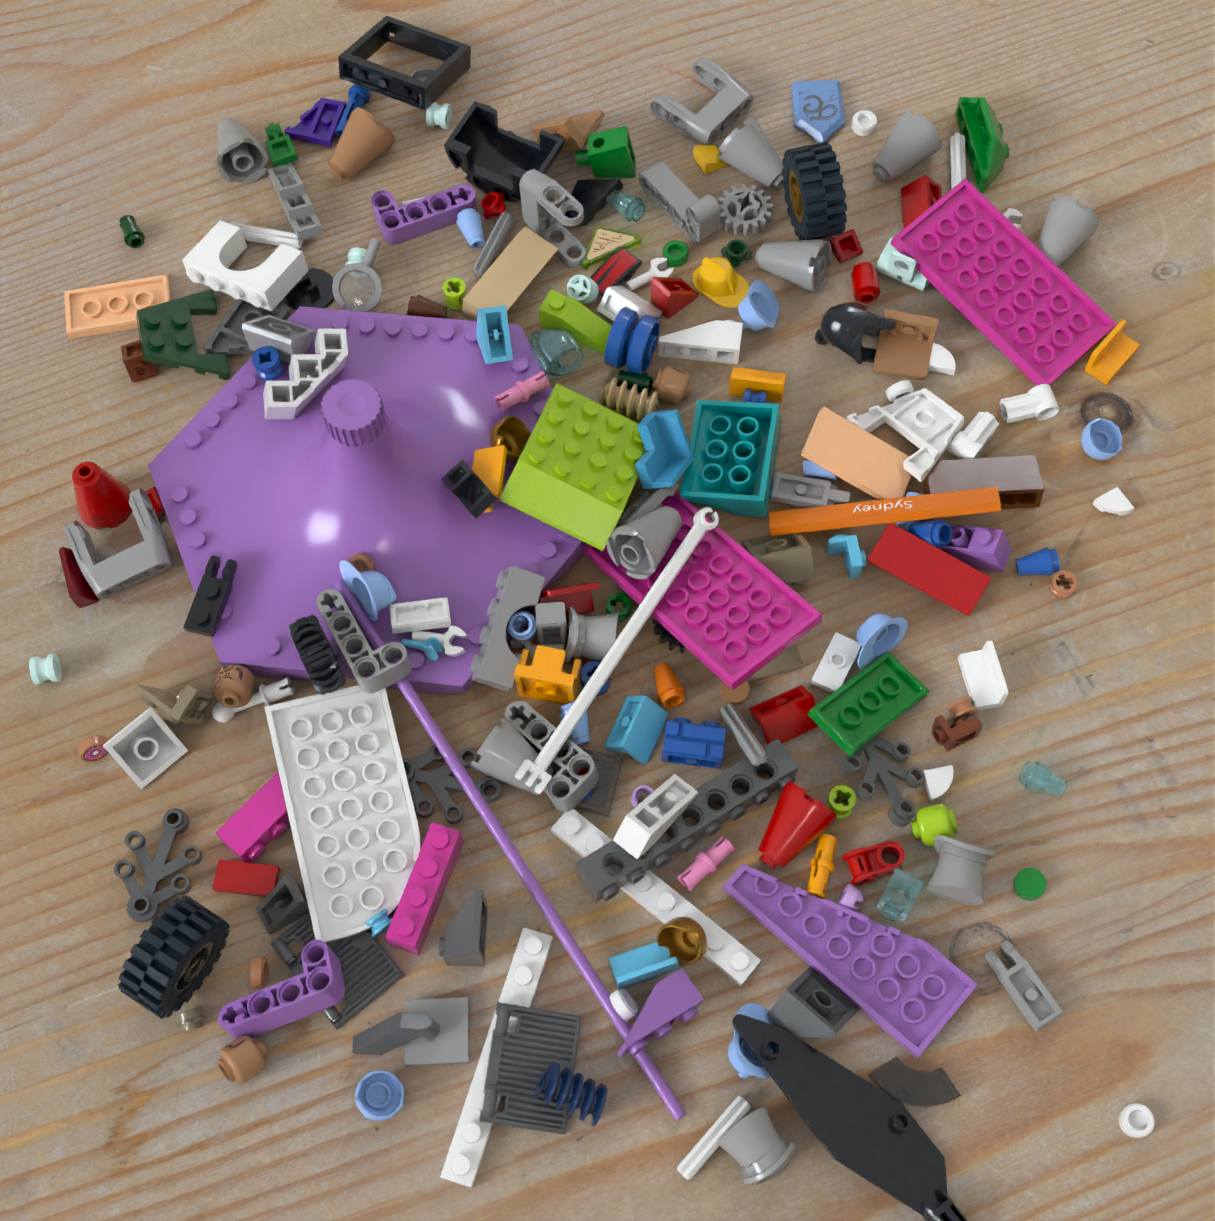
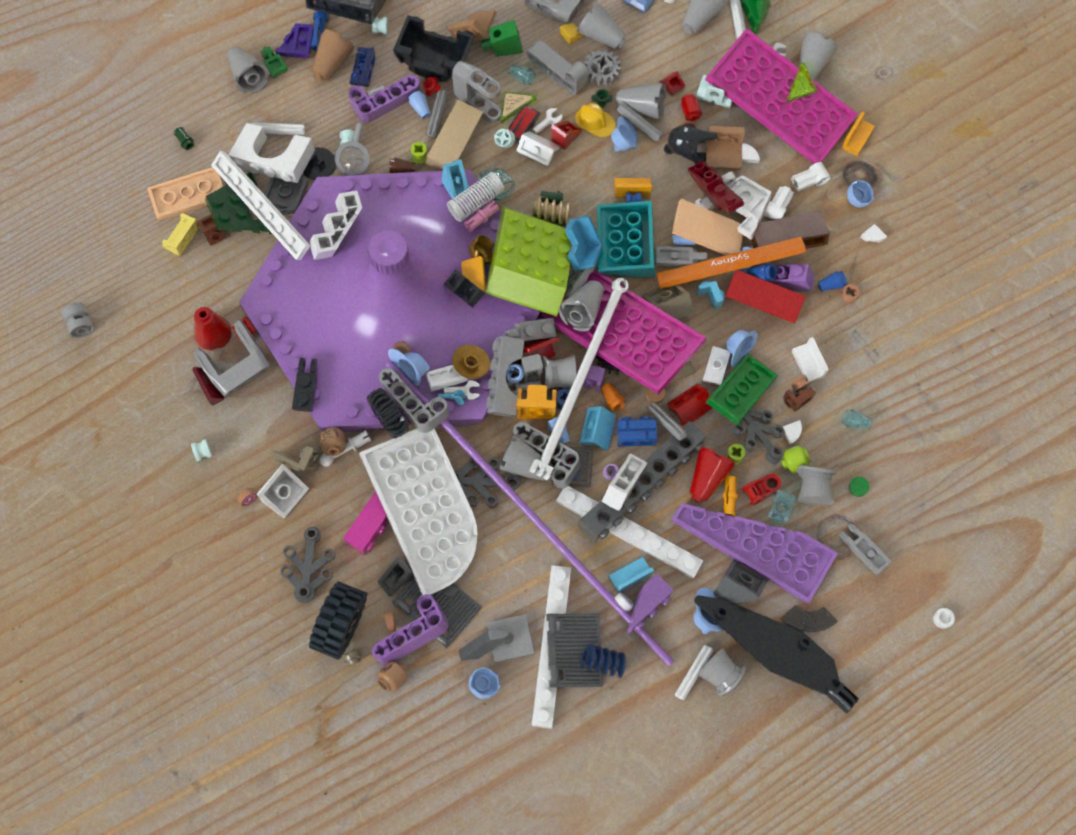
camera: 15 degrees left, 5 degrees up
(95, 363) = (181, 235): none -> light yellow hinge
(210, 335) = (260, 205): none -> white plate
(245, 878) = (367, 564): red tile -> none
(267, 370) = (309, 225): blue wheel -> none
(278, 333) = (309, 202): light grey slope -> none
(295, 201) = (293, 101): light grey slope -> none
(379, 923) = (460, 577): medium azure bush -> none
(404, 168) = (363, 67): none -> clear blue hinge
(425, 889) = (484, 551): dark pink brick -> none
(460, 588) = (471, 355): none -> pearl gold dish
(466, 934) = (517, 576): dark grey slope -> none
(499, 375) = (456, 210): none -> white piece
(564, 566) = (533, 329): none -> light grey hinge
(570, 315) = (501, 158): lime slope -> none
(592, 196) = (498, 70): black wing -> none
(626, 603) = (574, 346): green bush -> none
(632, 341) = (546, 170): blue wheel -> none
(644, 651) = (594, 377): none -> medium lavender brick
(672, 384) = (577, 196): medium nougat head -> none
(676, 253) = (561, 103): green tile -> none
(683, 939) = (654, 555): pearl gold hair -> none
(706, 863) = (658, 506): bright pink pin -> none
(709, 342) = (595, 163): white slope -> none
(785, 292) = (639, 121): none -> light grey axle
(814, 191) = (648, 50): black wheel -> none
(849, 897) = (750, 512): lavender hinge -> none
(878, 400) = (713, 187): none -> dark red slope
(918, 198) = (716, 45): red panel -> none
(1037, 269) = (802, 84): none -> clear neon green tile

